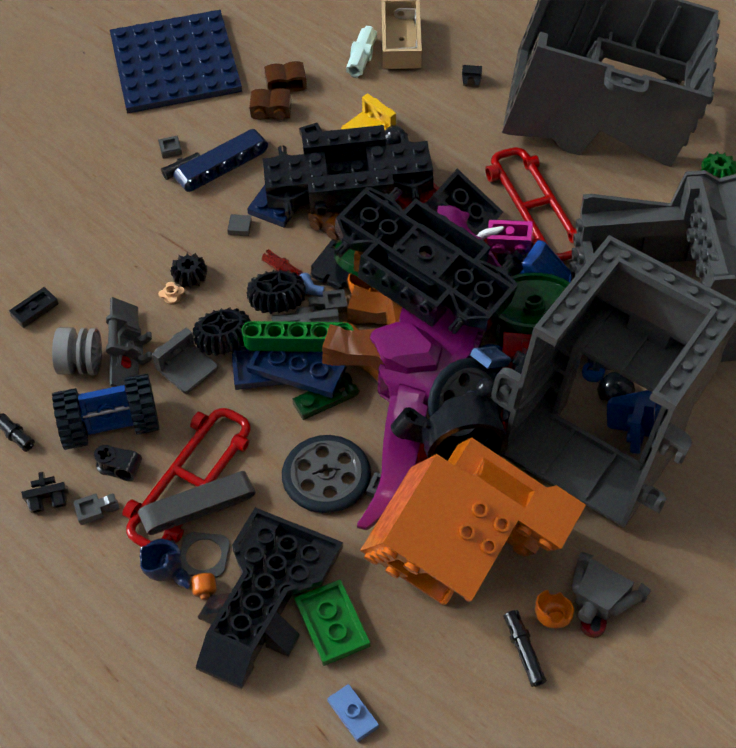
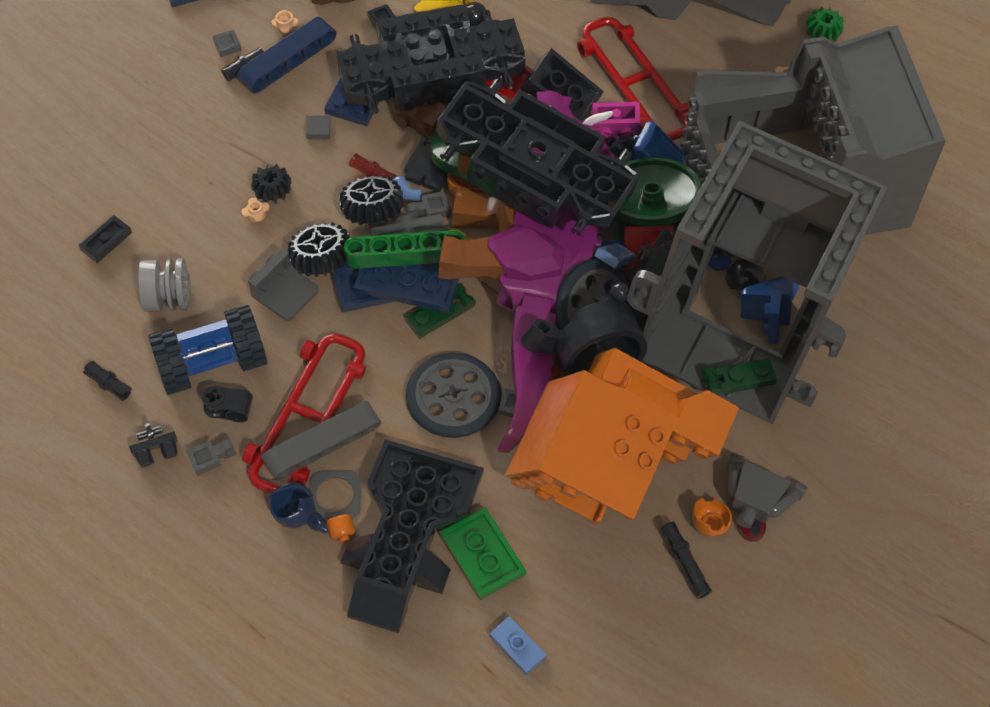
camera: 10 degrees left, 5 degrees up
(125, 342) = (215, 271): dark grey piece -> none
(223, 131) = (284, 21): none -> light nougat plate
(596, 480) = (739, 376): none -> dark green plate

